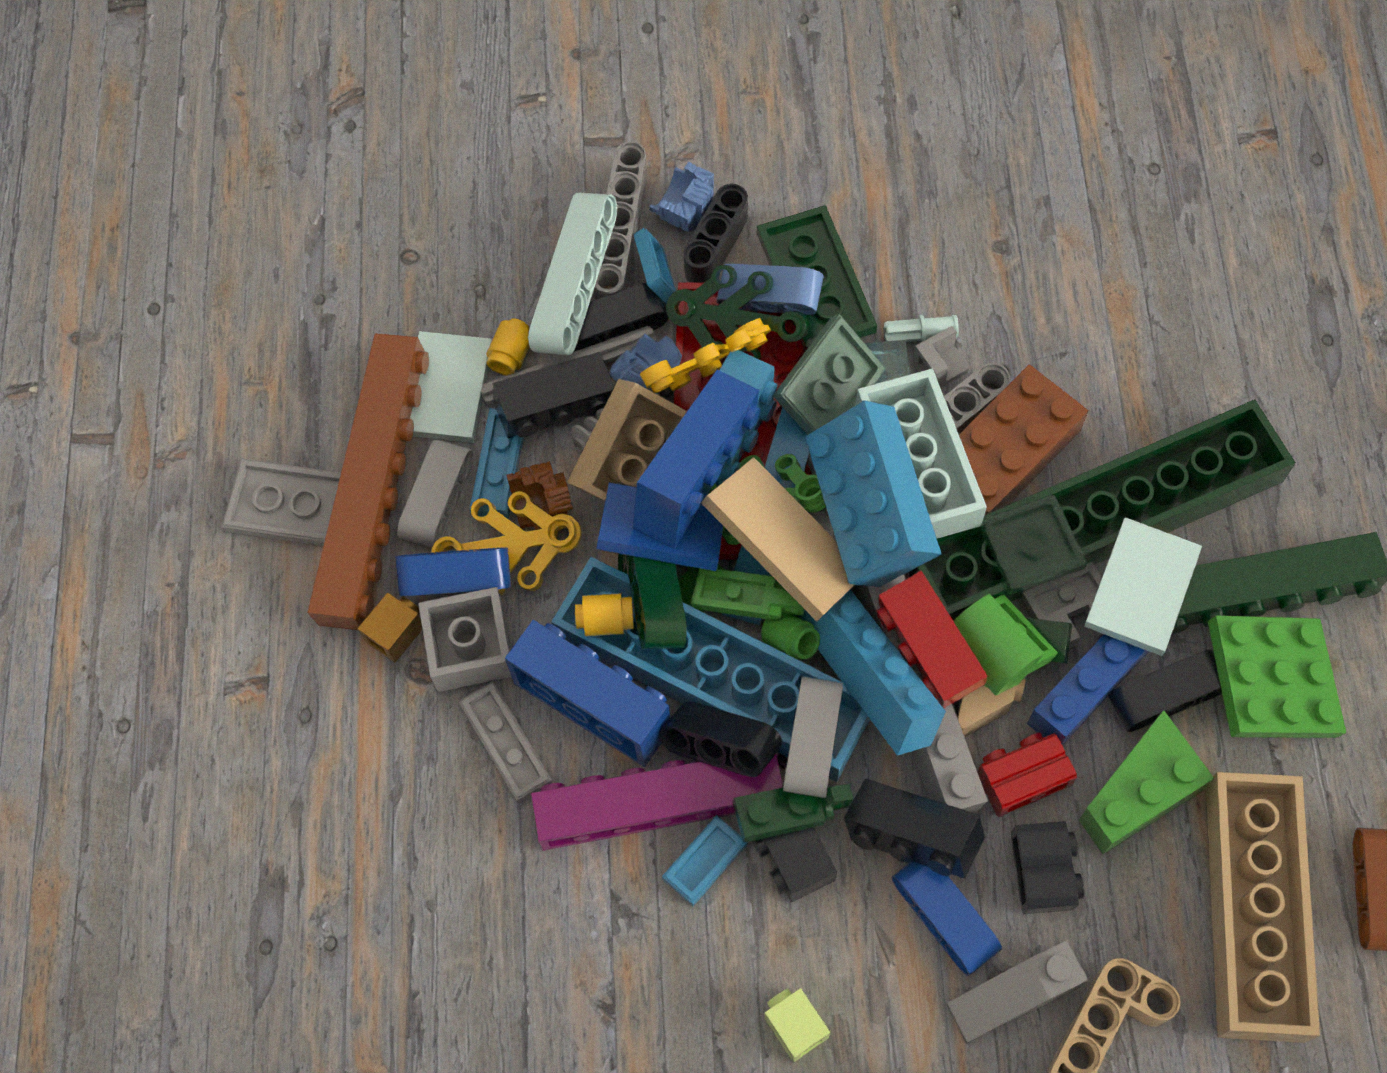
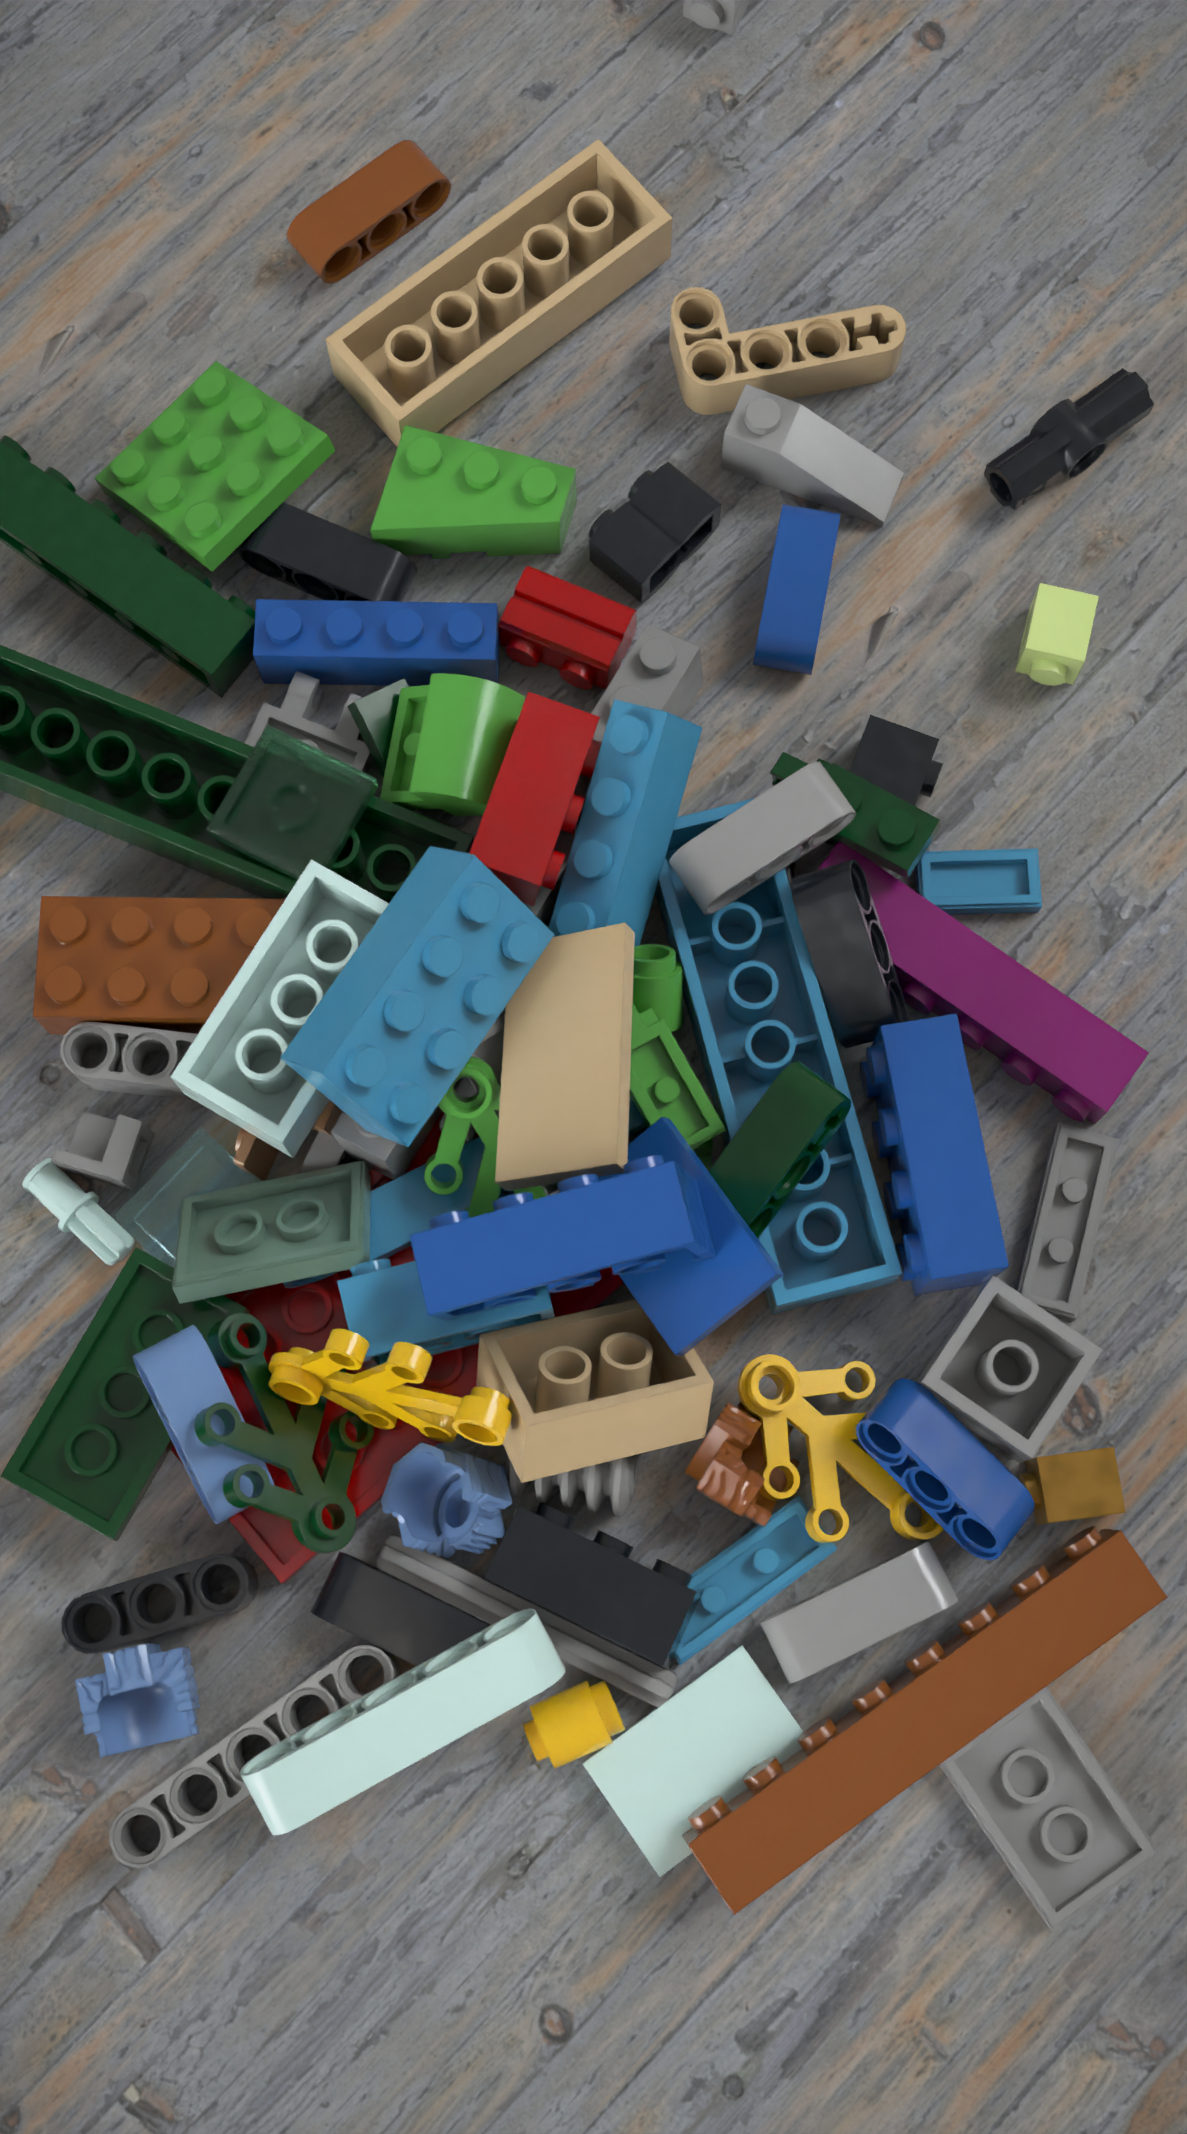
camera: 135 degrees left, 10 degrees up
(604, 614) = (842, 1203): yellow brick -> none
(654, 264) = (285, 1634): dark azure tile -> none
(914, 828) = (750, 672): black brick -> none
(1143, 586) = (239, 648): light aqua tile -> none

